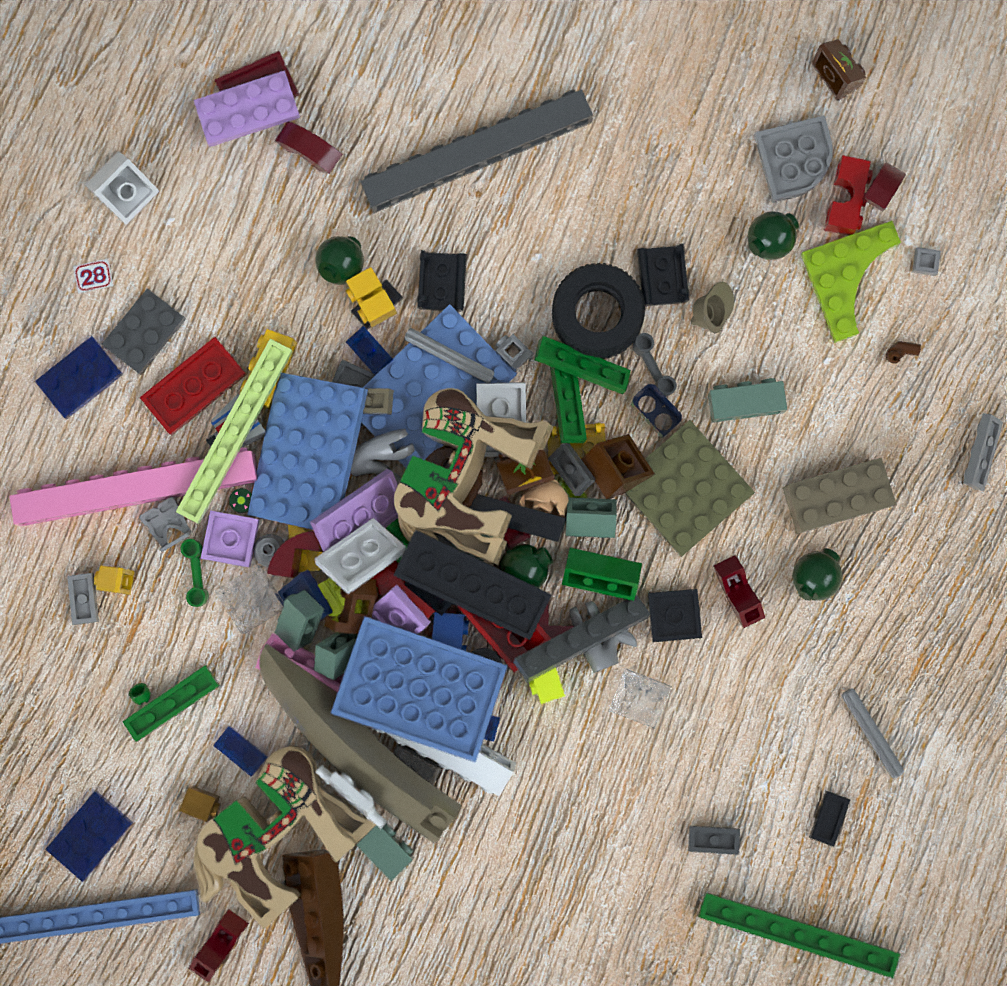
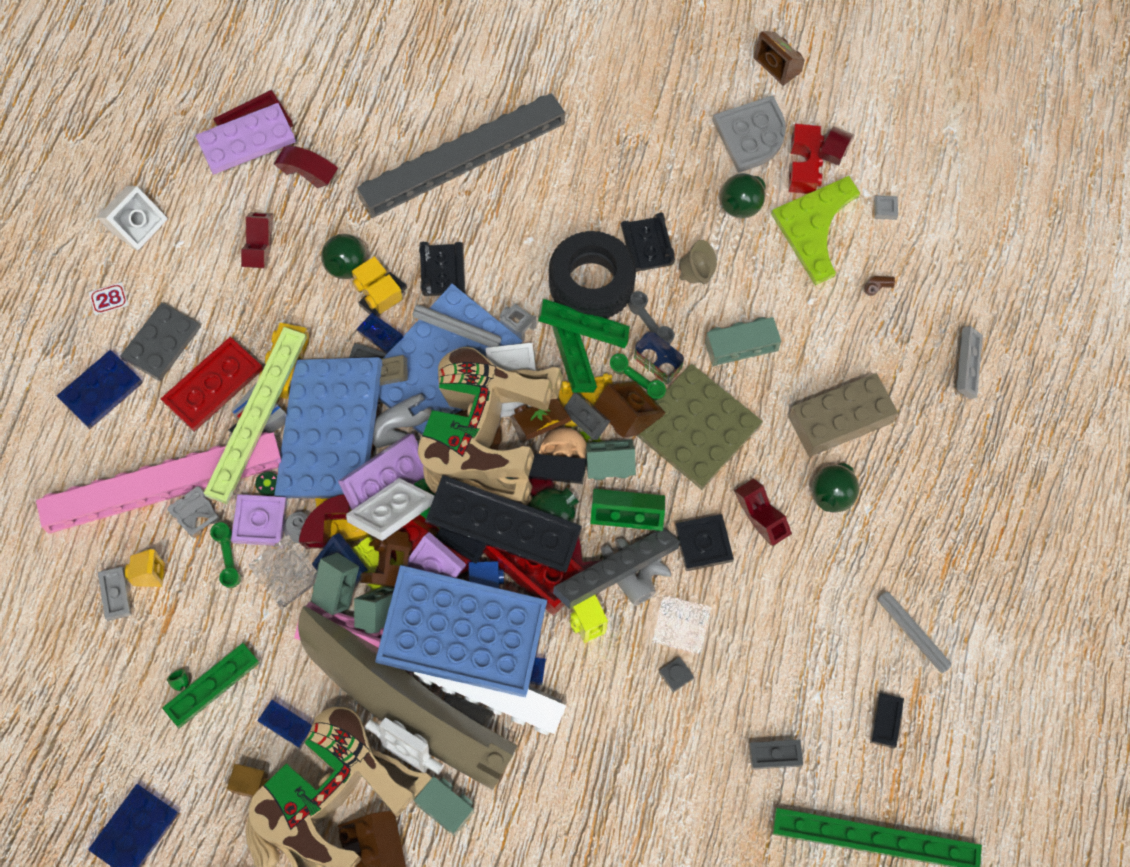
camera: 15 degrees left, 15 degrees down
(251, 228) = (258, 240): none -> dark red brick
(616, 412) = (620, 365): none -> green bar
(627, 747) = (676, 674): none -> dark grey plate

